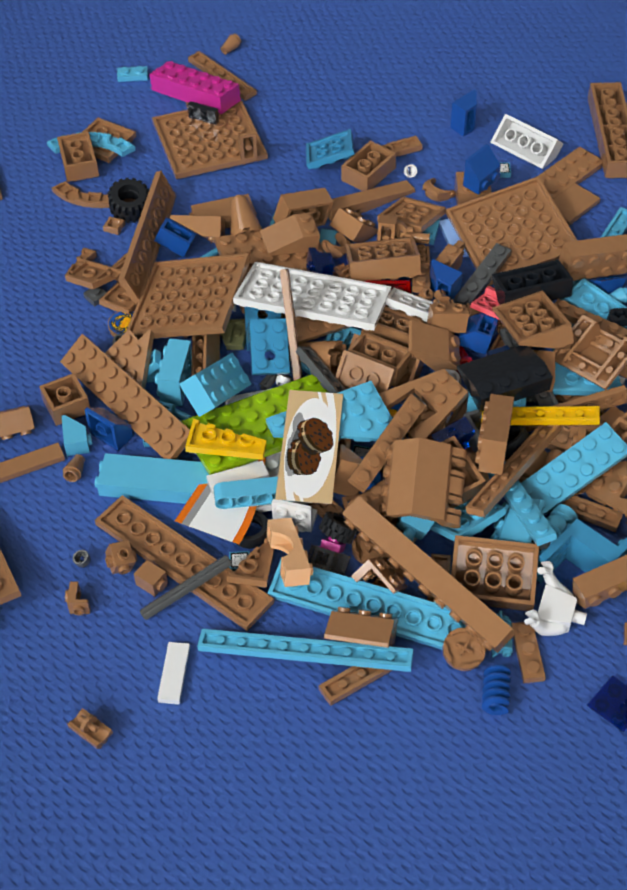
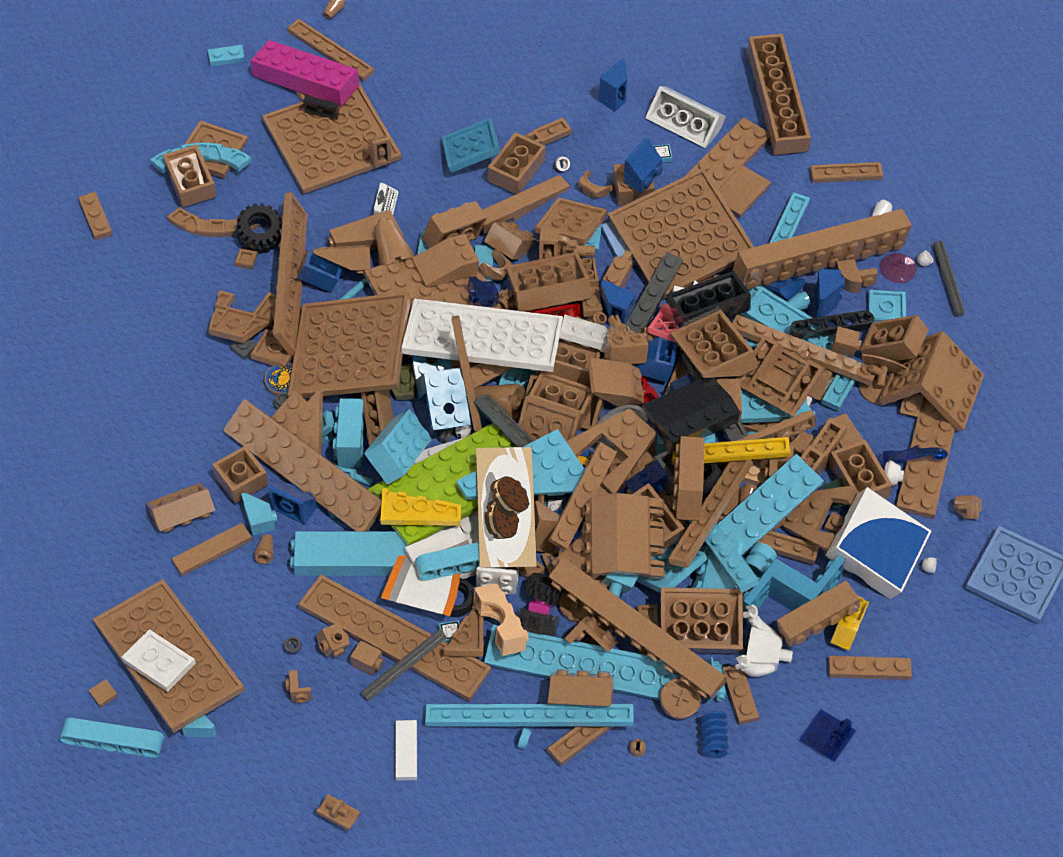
camera: 10 degrees left, 5 degrees up
(247, 186) = (385, 199): none -> slope
(296, 673) = (524, 738): none -> medium azure tile
(418, 698) = (632, 748): none -> medium nougat hinge

